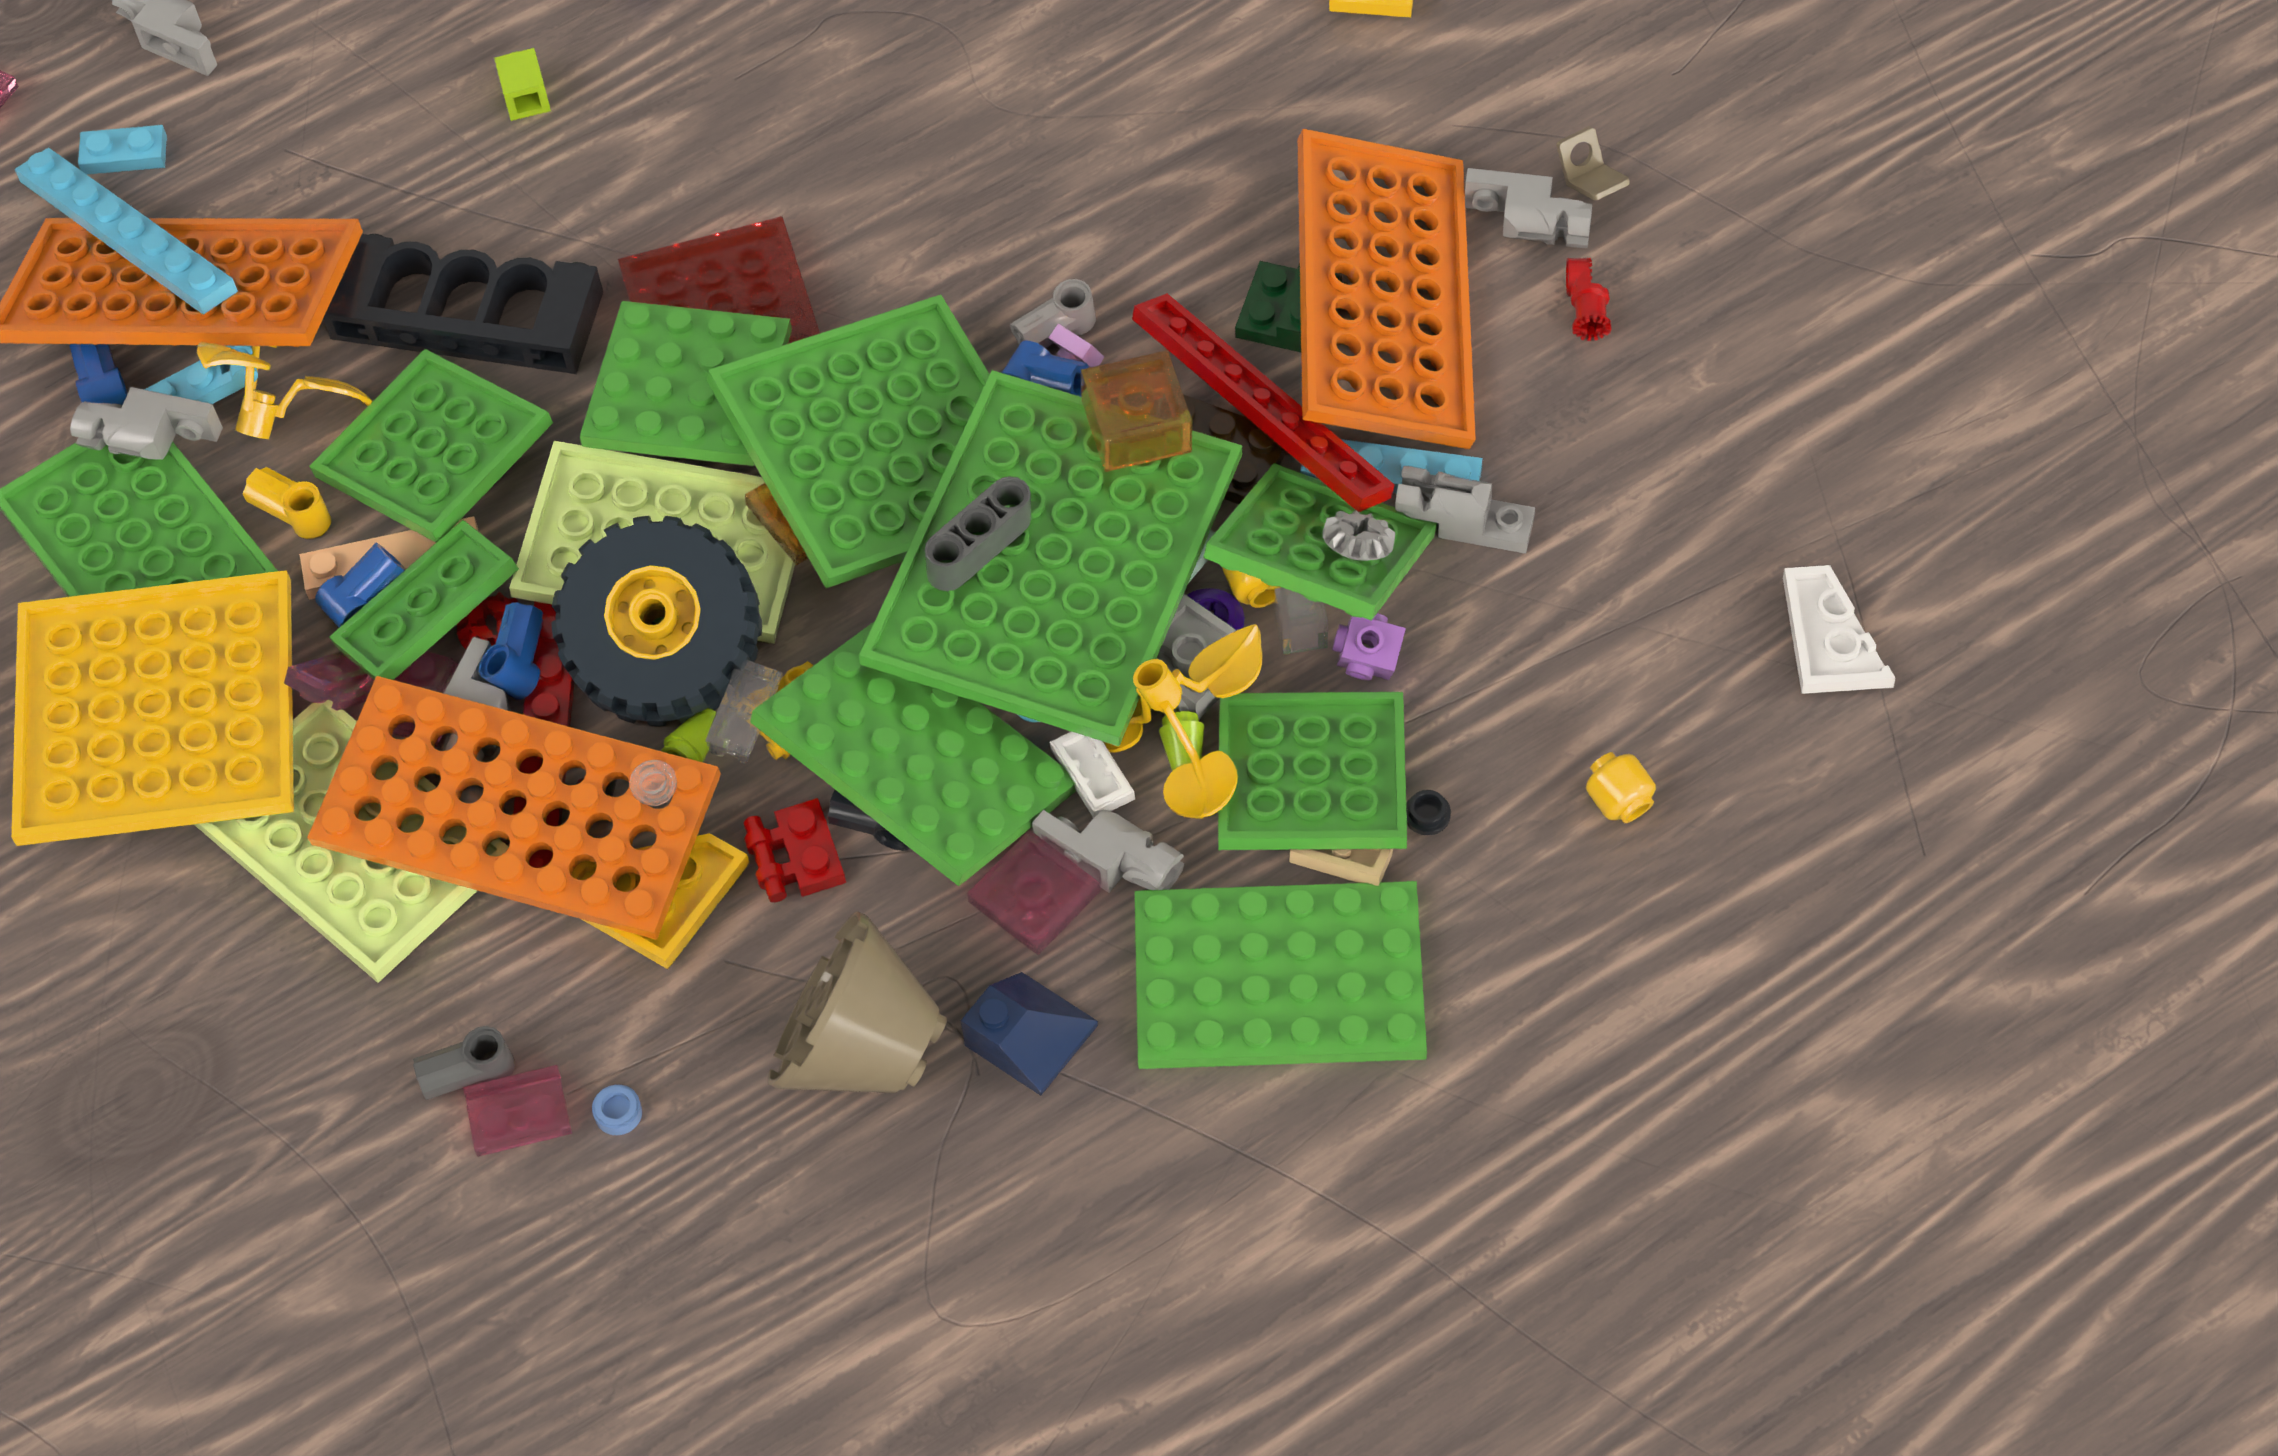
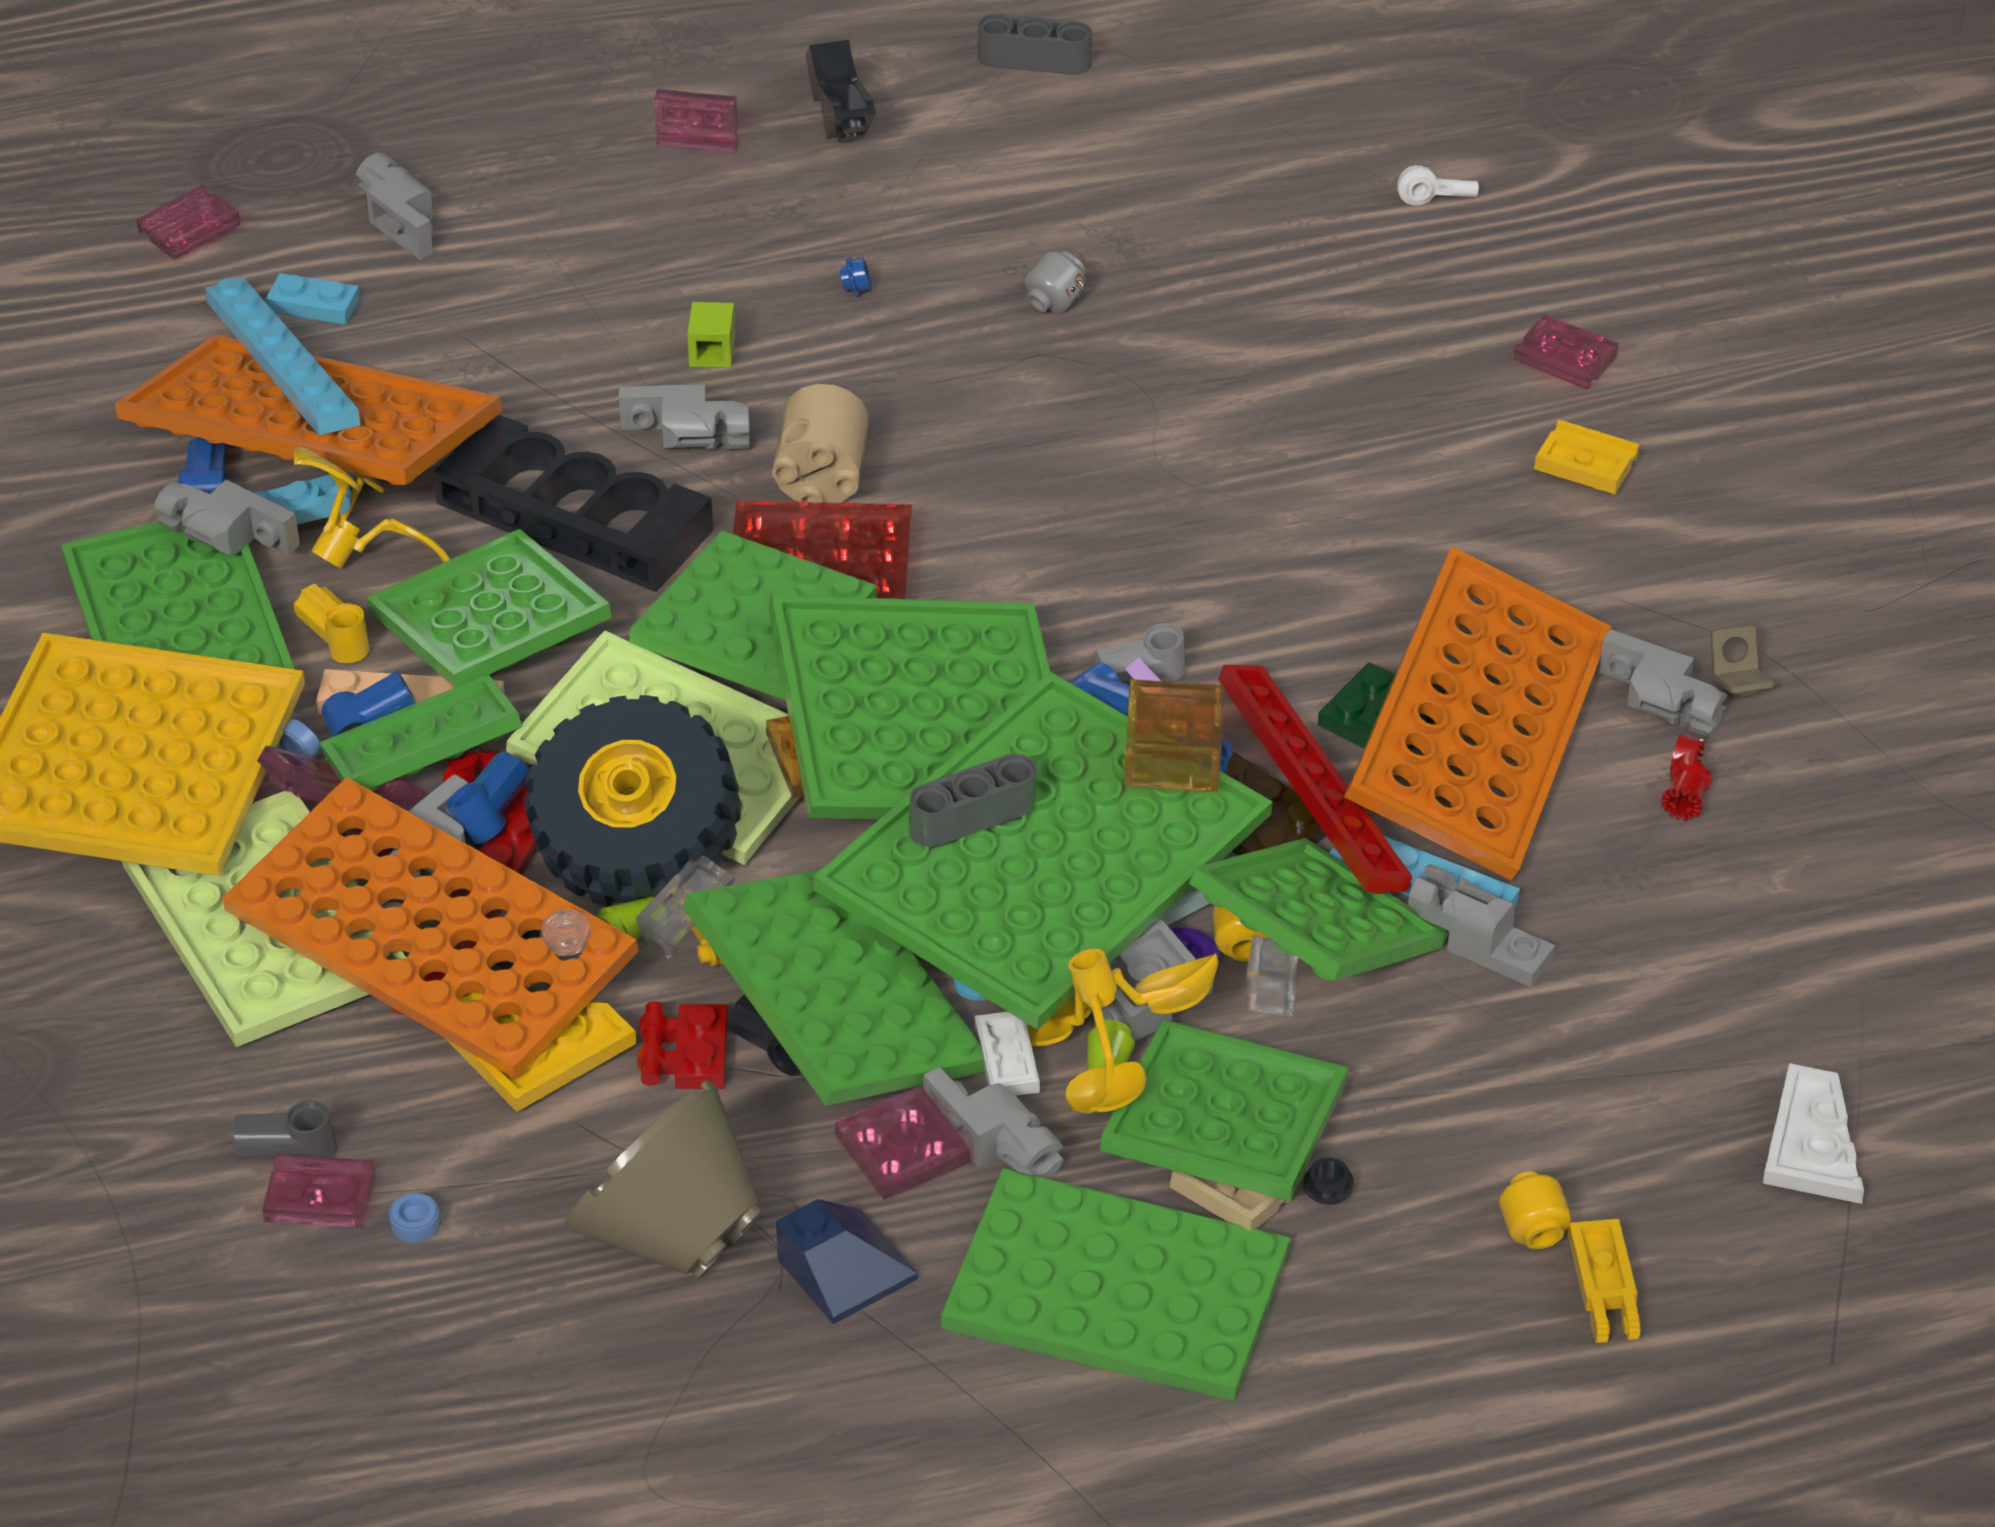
camera: 15 degrees right, 15 degrees down
(309, 641) = (300, 739): none -> medium blue tile
(533, 181) = (685, 416): none -> light grey plate
(677, 180) = (821, 444): none -> tan cylinder
(1365, 662) = (1329, 1016): medium lavender brick -> none
(1371, 543) = (1355, 909): light grey gear -> none
(1703, 833) = (1604, 1275): none -> yellow hinge

